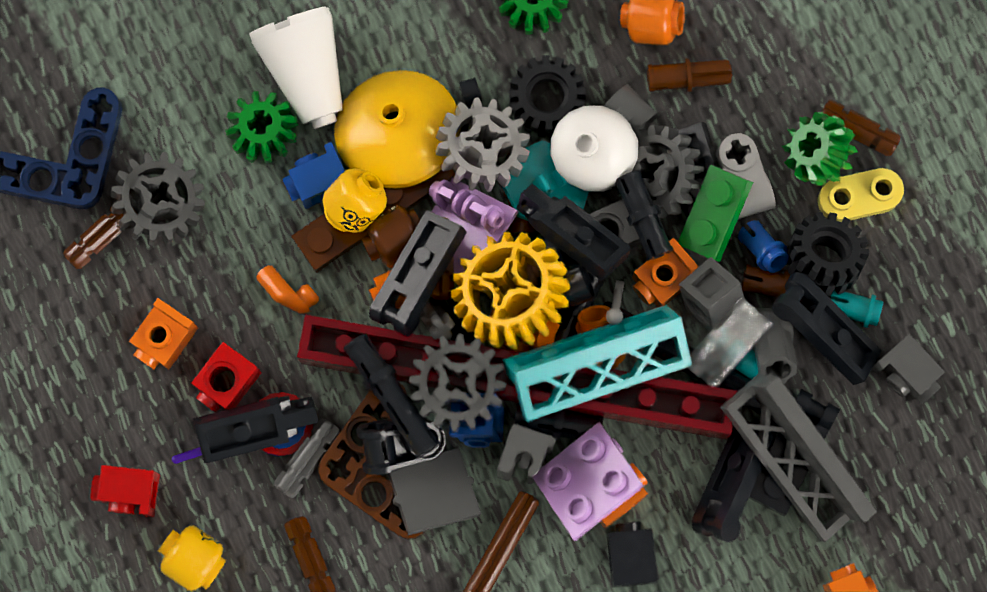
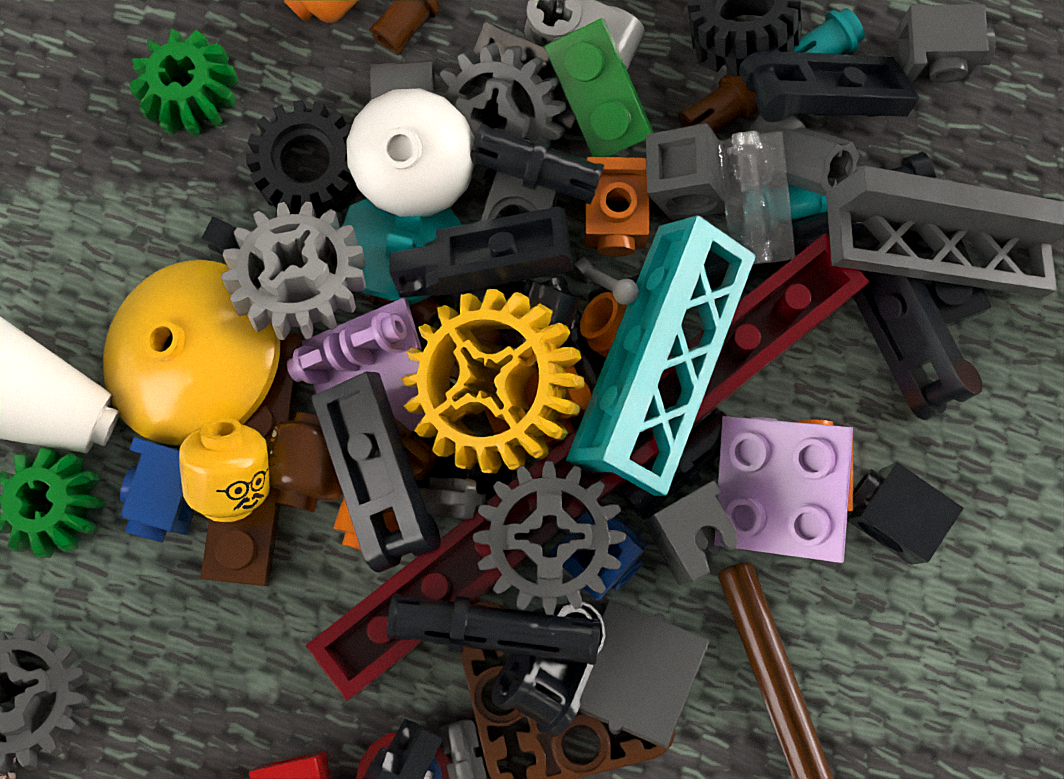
camera: 50 degrees left, 0 degrees up
(283, 293) = (258, 646): orange arm -> none
(770, 253) = (679, 77): blue pin -> none

